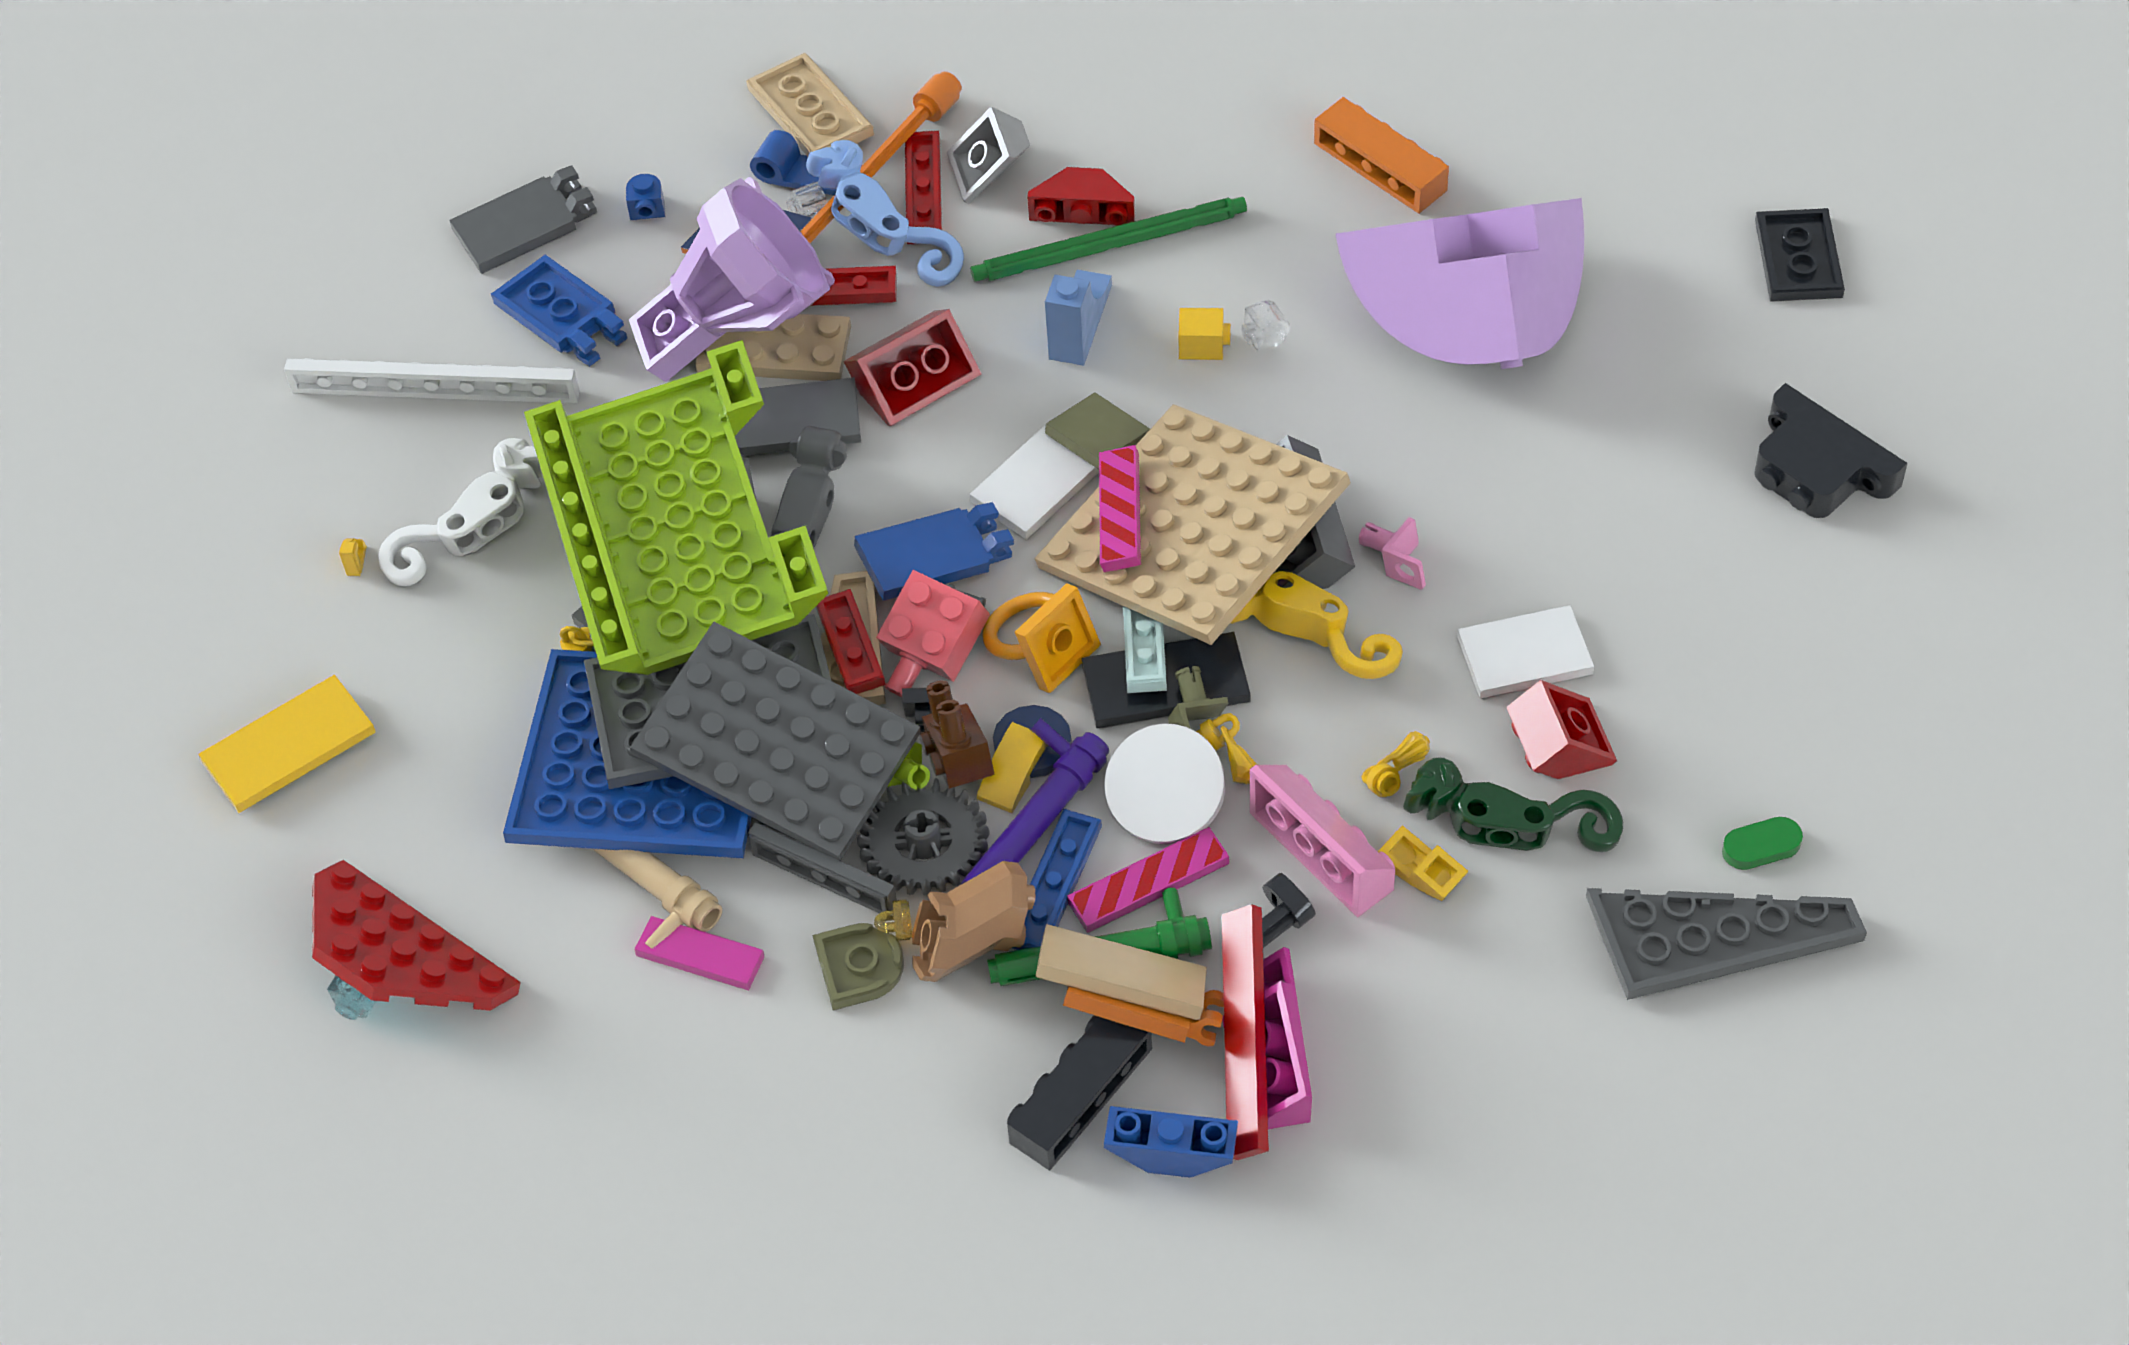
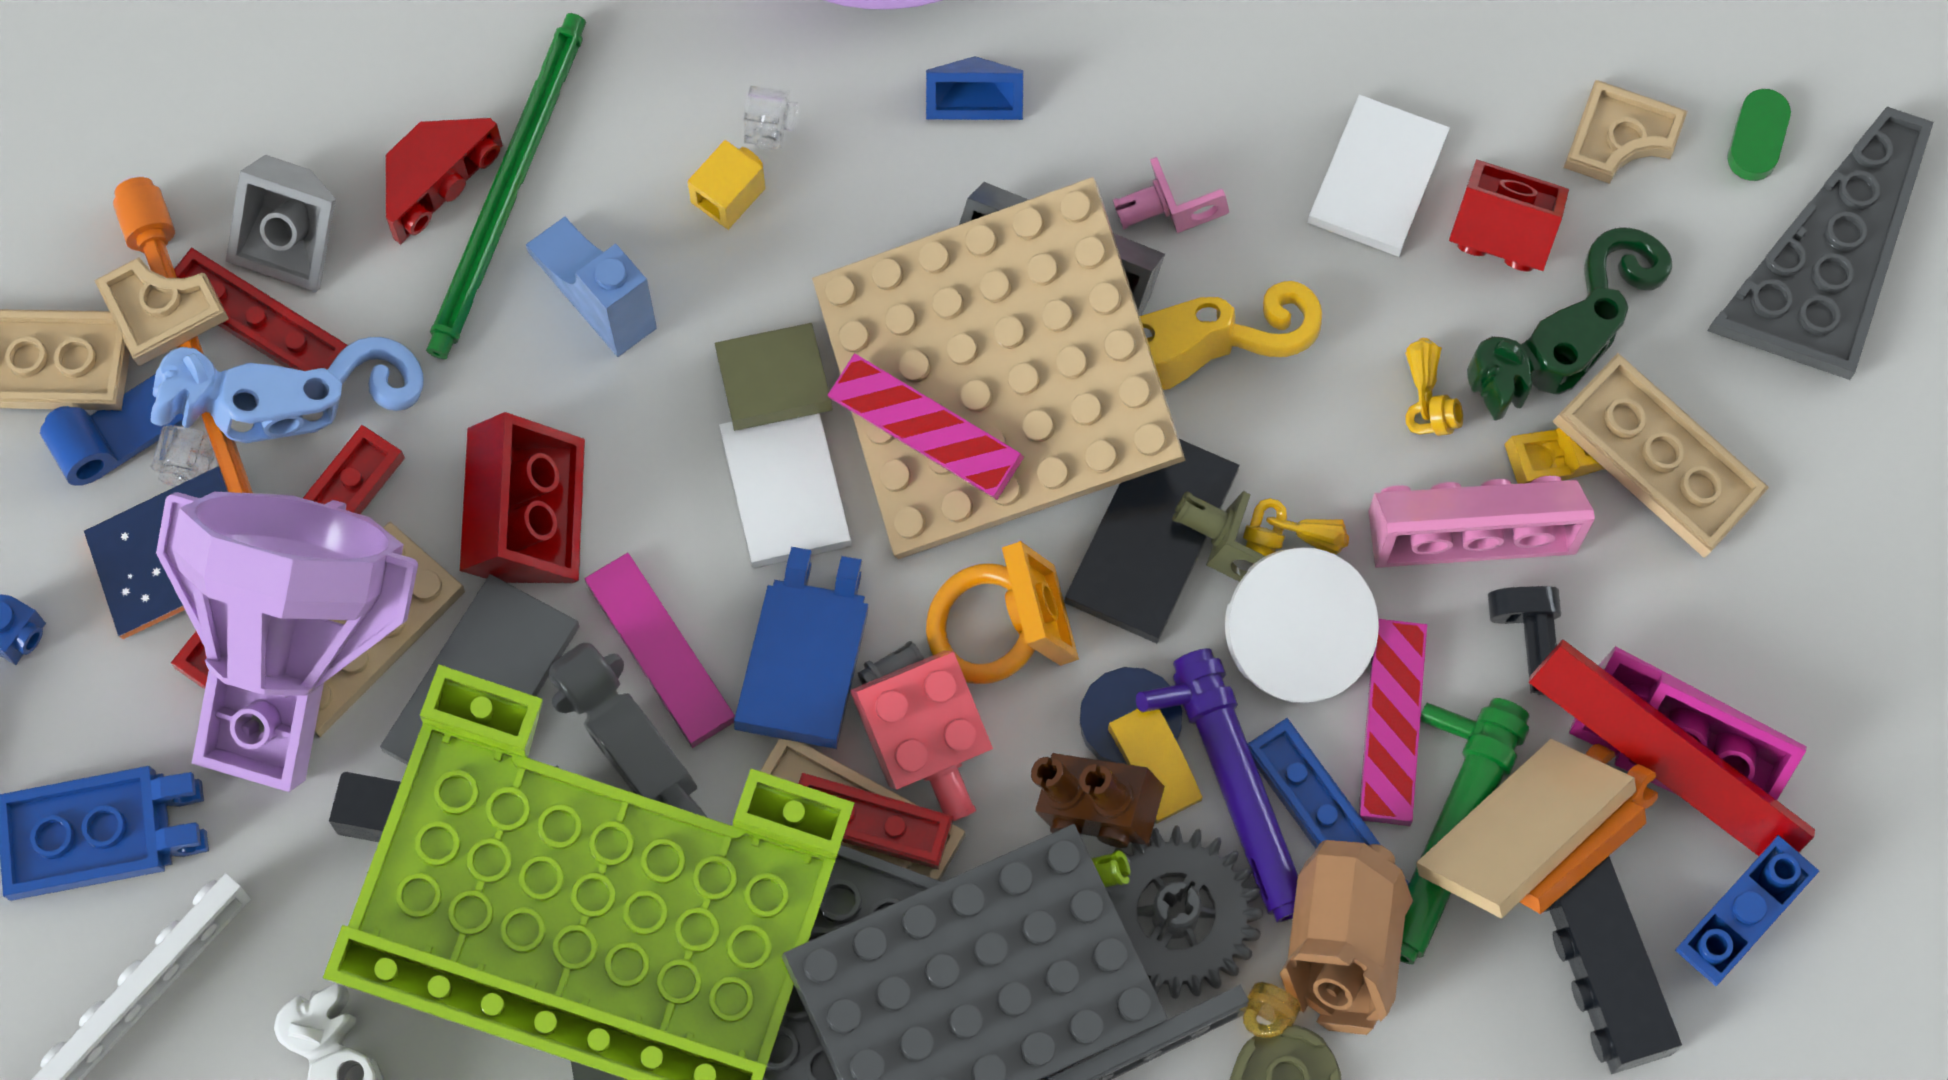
camera: 60 degrees left, 15 degrees up
(879, 484) = (660, 650): none -> dark pink tile
(882, 133) = (158, 310): none -> tan tile
(916, 704) = (1008, 800): black tile -> none
(1144, 653) = (1115, 532): light aqua tile -> none
(1379, 412) = (974, 91): none -> blue slope
(1464, 915) = (1661, 455): none -> tan tile
(1688, 762) = (1621, 128): none -> tan tile

